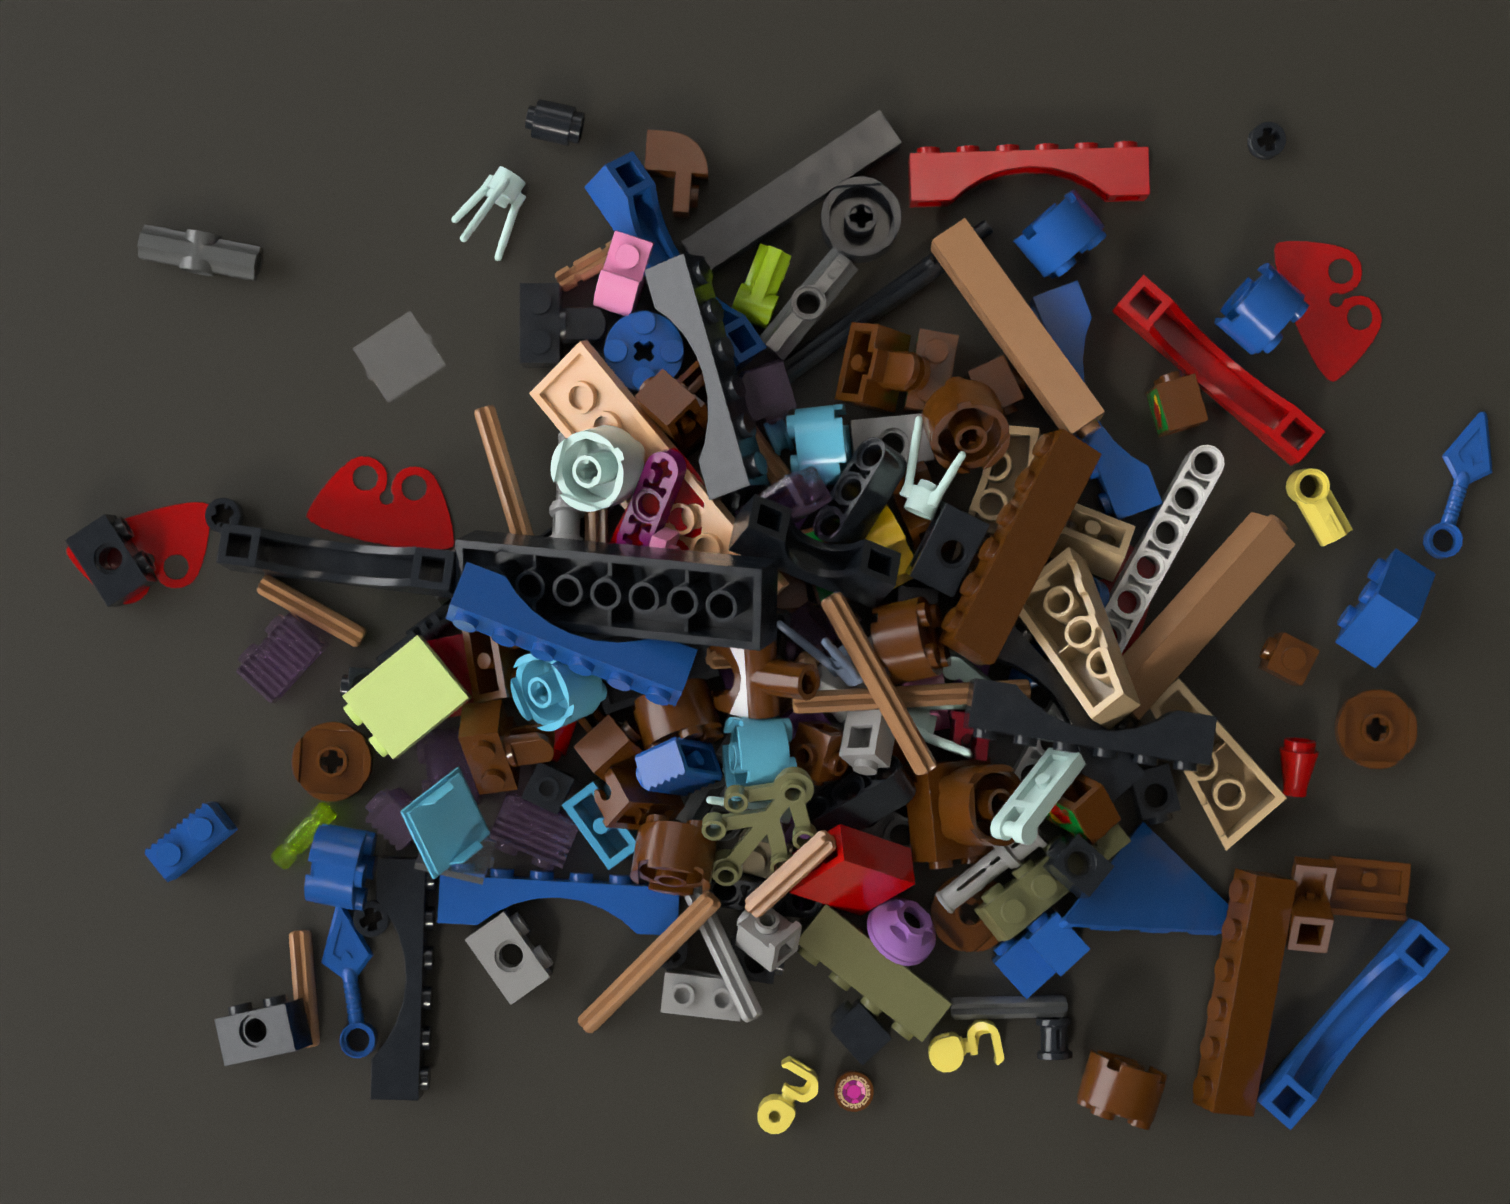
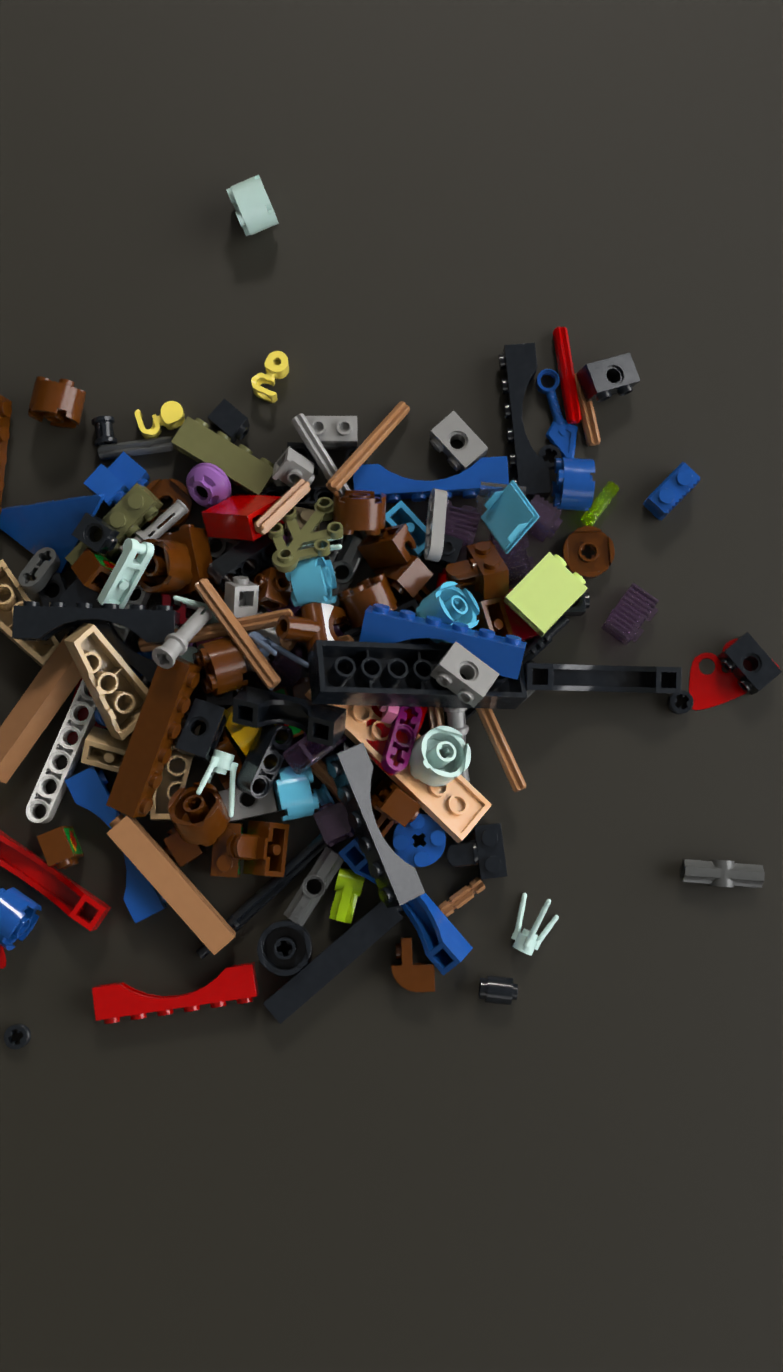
camera: 165 degrees right, 5 degrees down
(311, 610) = (615, 647): medium nougat axle -> none
(327, 1044) = (567, 375): none -> red axle
(364, 517) = (590, 713): red piece -> none
(399, 356) = (581, 820): clear piece -> none
(524, 576) = (478, 674): none -> light grey brick
(560, 822) = (435, 525): none -> light grey beam
(623, 274) = (439, 891): bright pink brick -> none
(678, 766) = (363, 567): blue brick -> none
(853, 1091) = (229, 385): tile -> none
(969, 675) = (177, 643): none -> light grey pin
(1060, 234) = (149, 952): blue brick -> none
(1171, 826) = (40, 569): none -> dark grey beam

